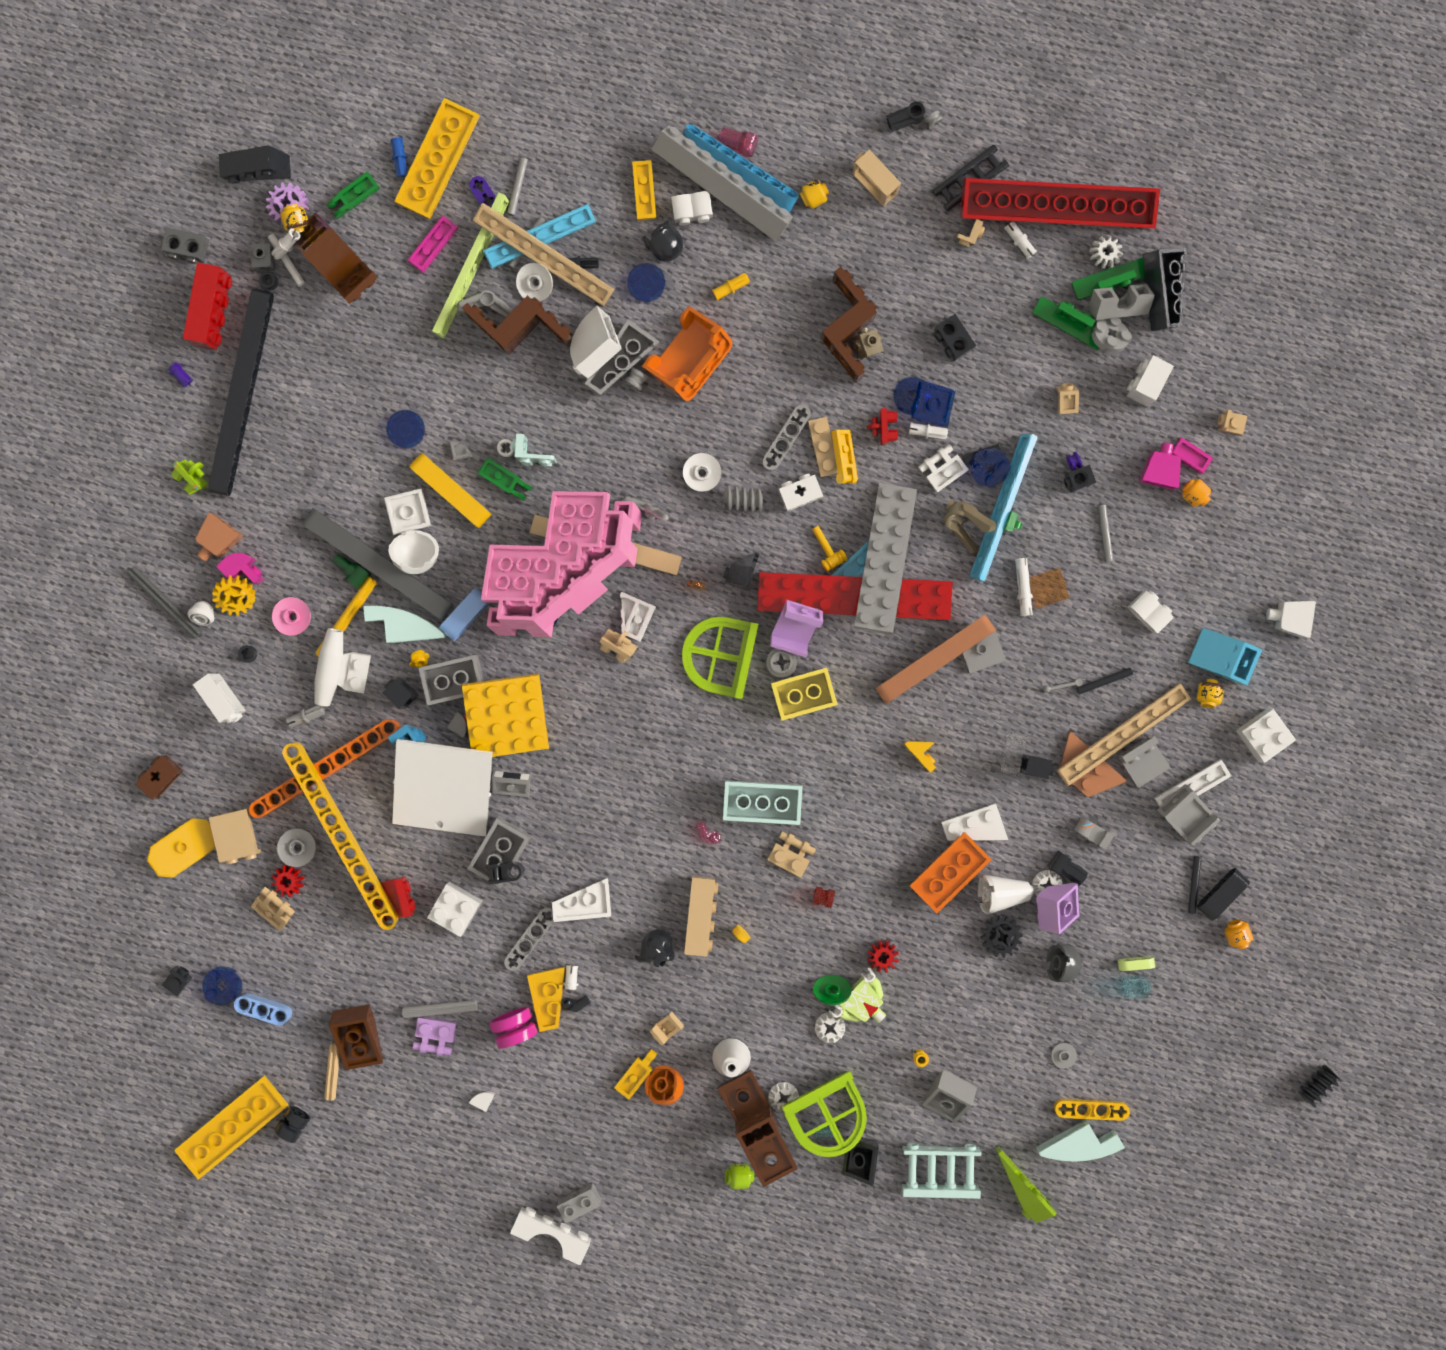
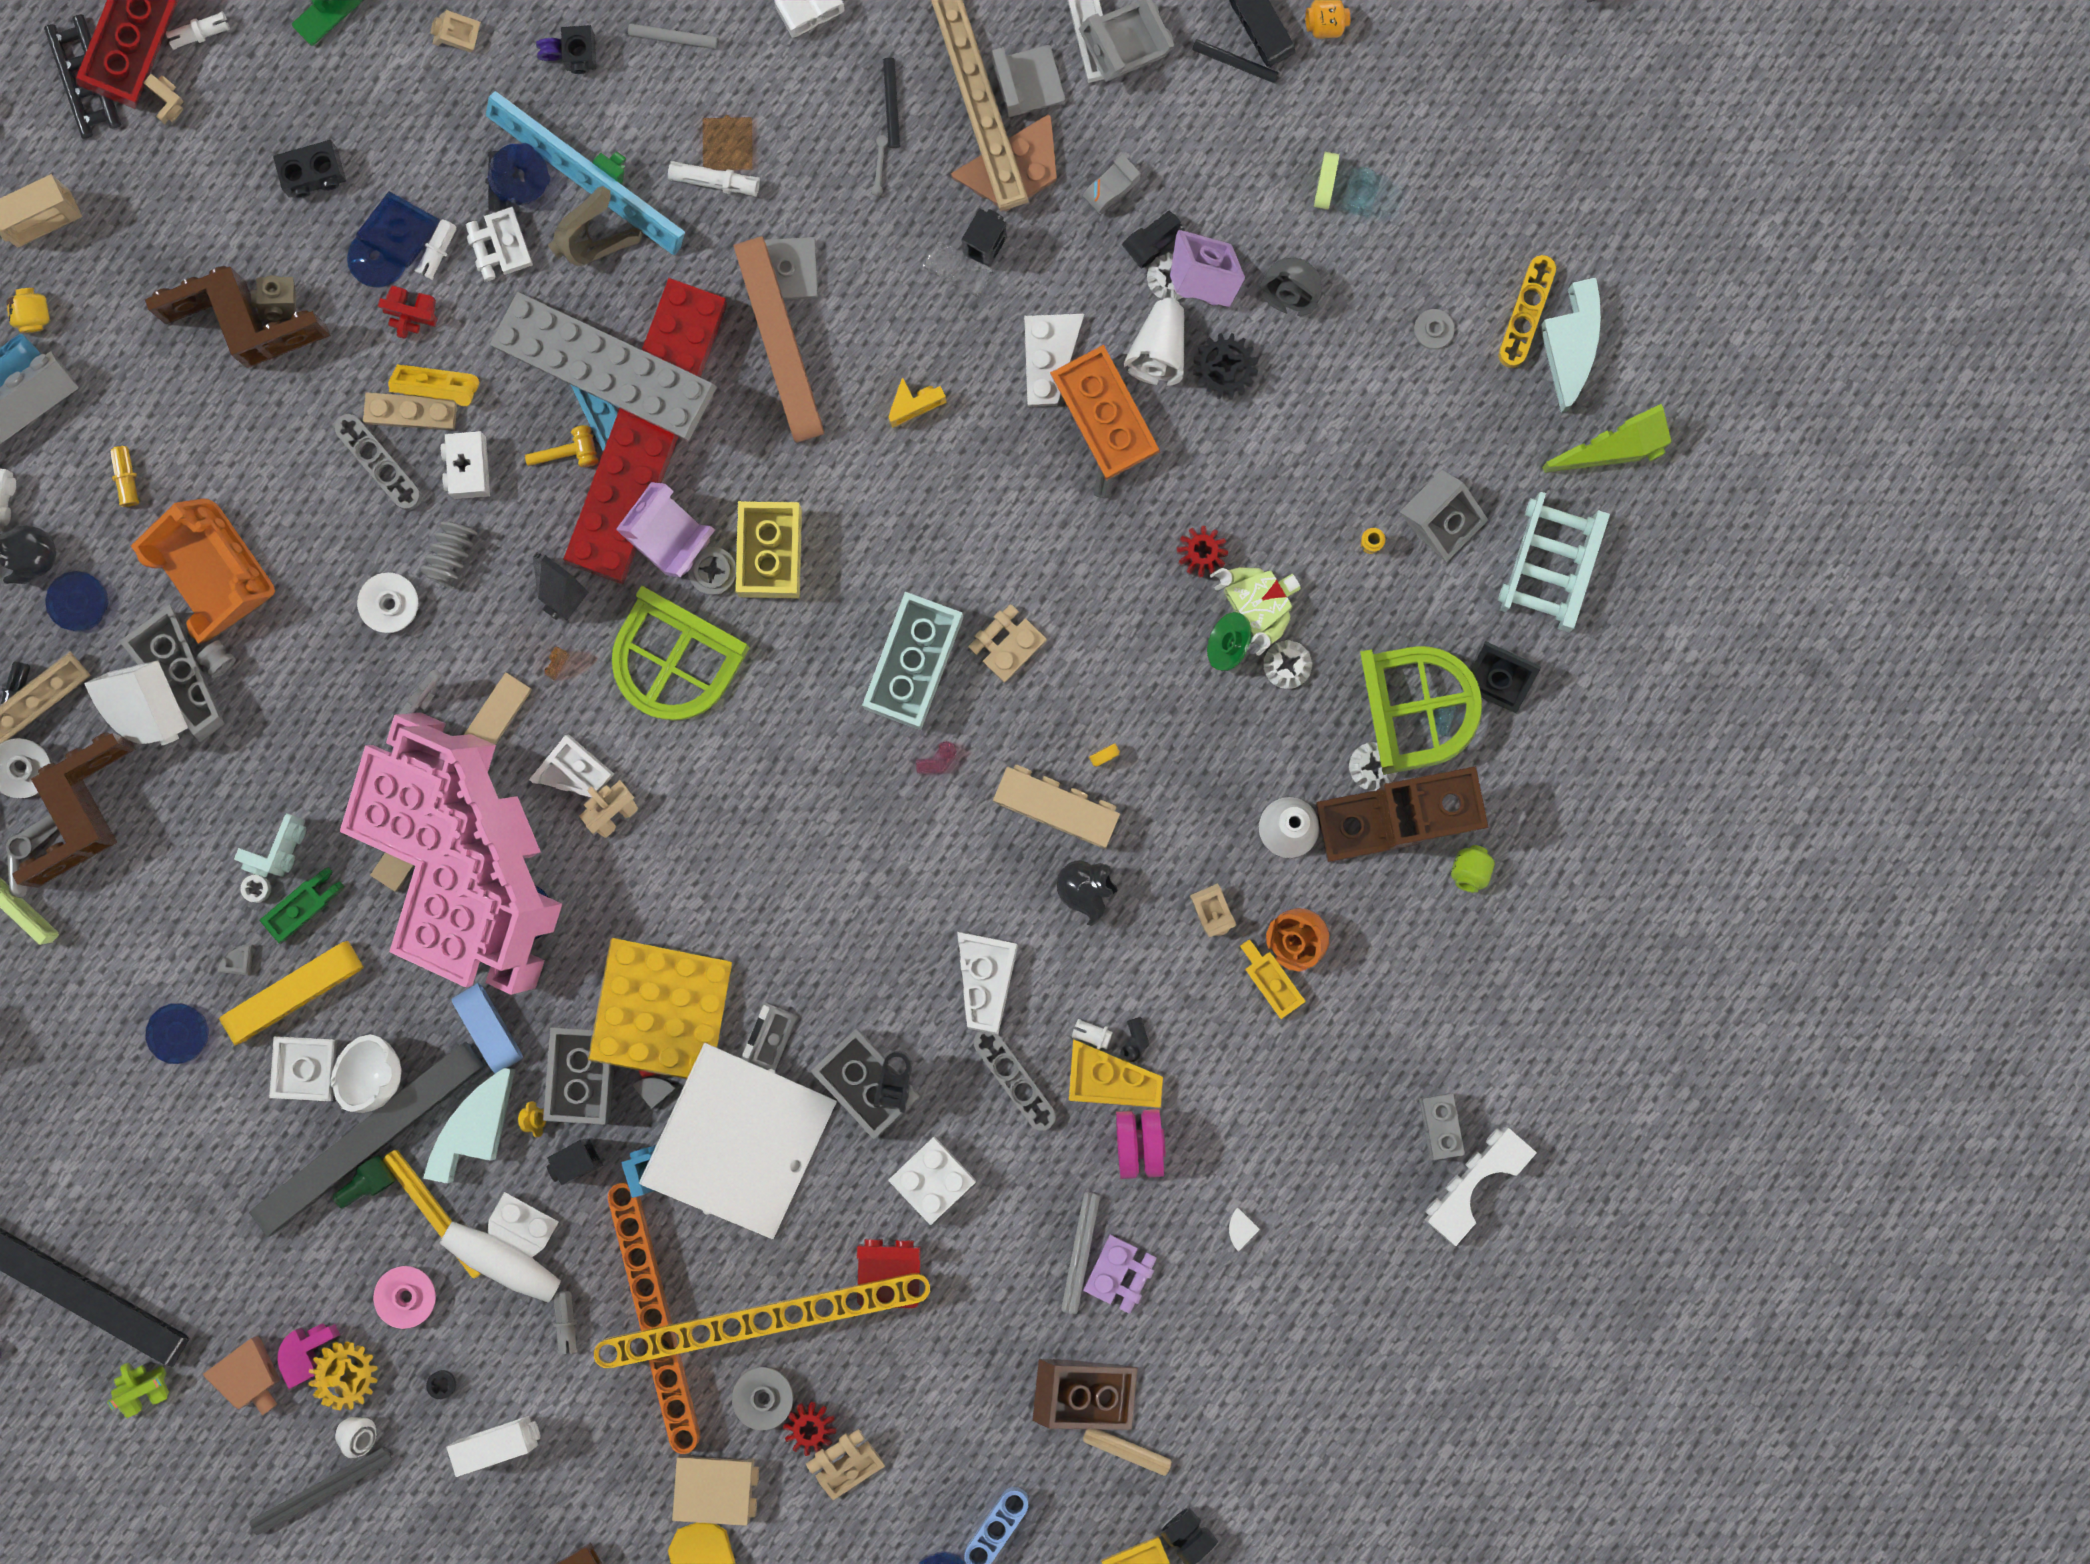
camera: 70 degrees left, 5 degrees down
(823, 897) = (1086, 613): clear red wheel -> none

